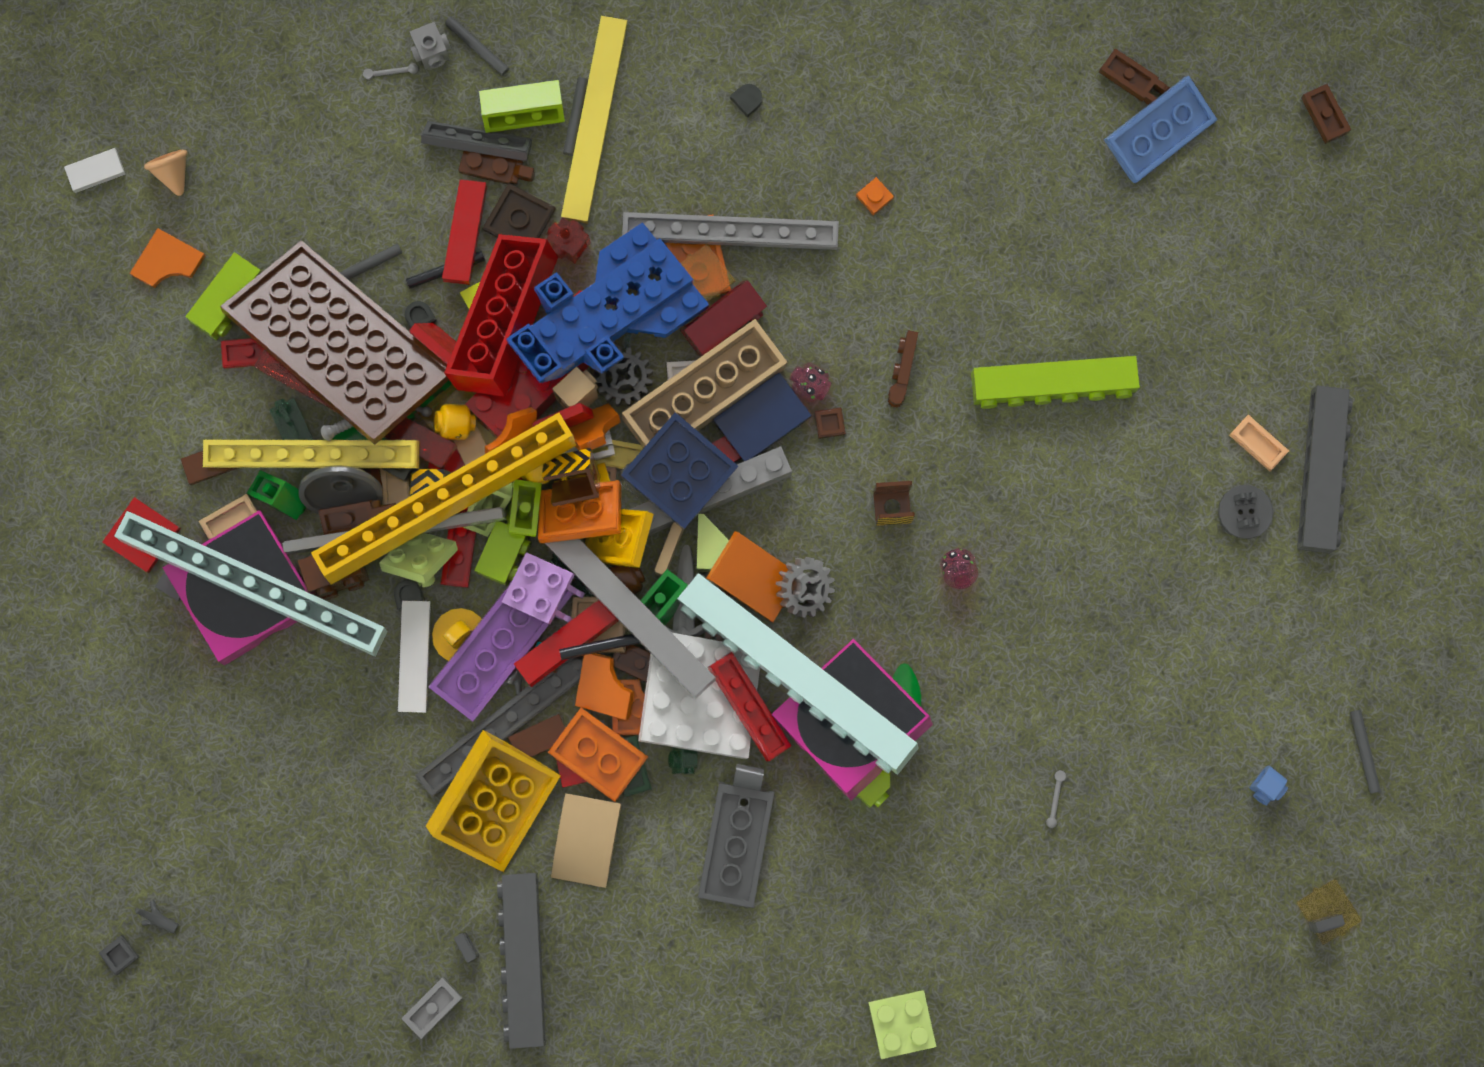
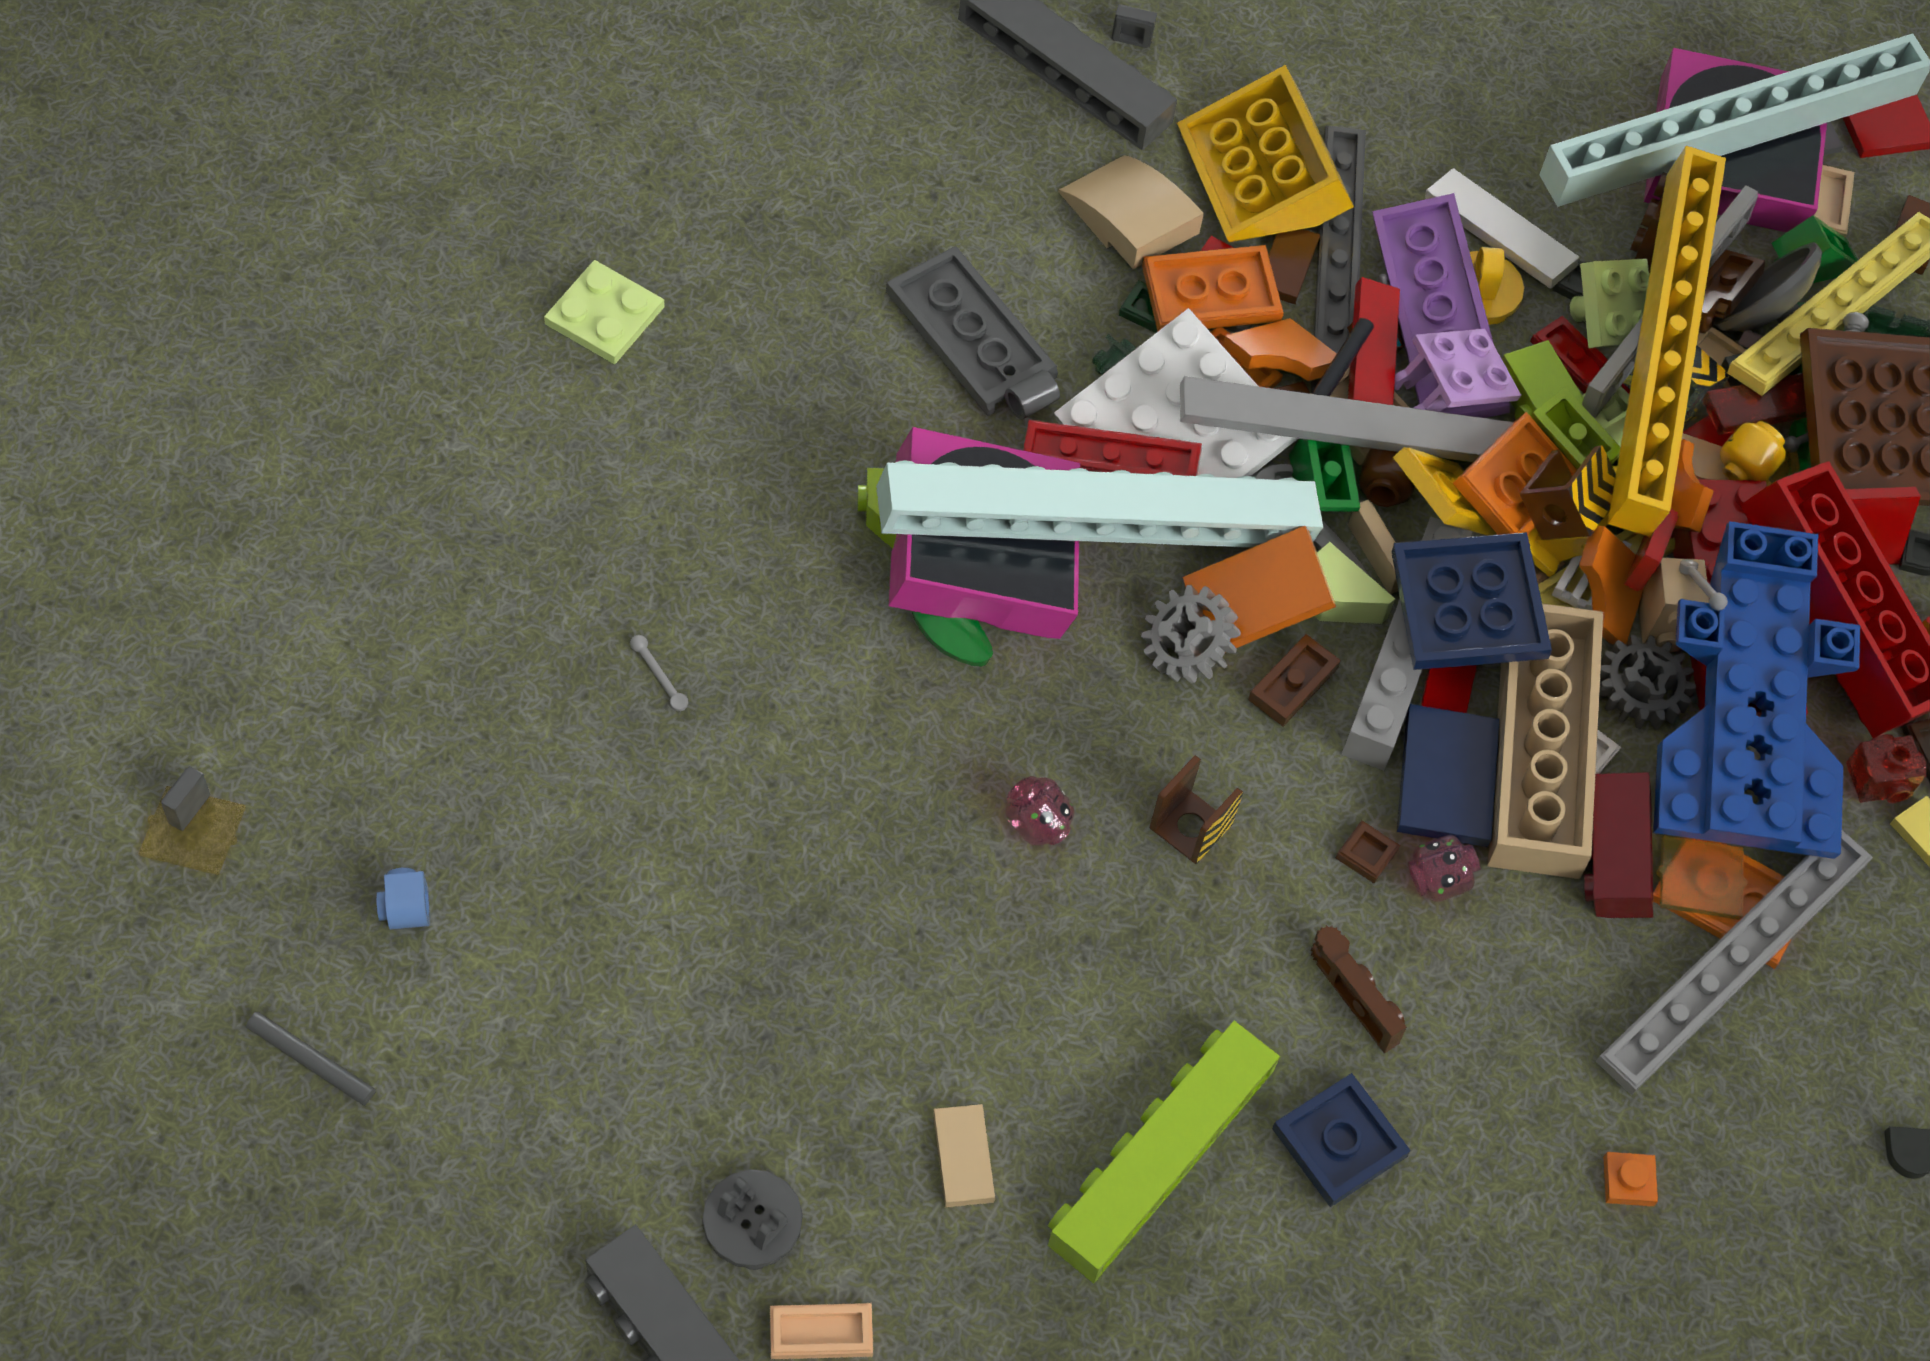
camera: 130 degrees right, 20 degrees down
(568, 389) = (1716, 600): none -> light grey hinge
(777, 525) = (1294, 680): none -> reddish brown plate
(976, 318) = (1341, 1139): none -> dark blue plate
(1134, 457) = (964, 1155): none -> tan tile

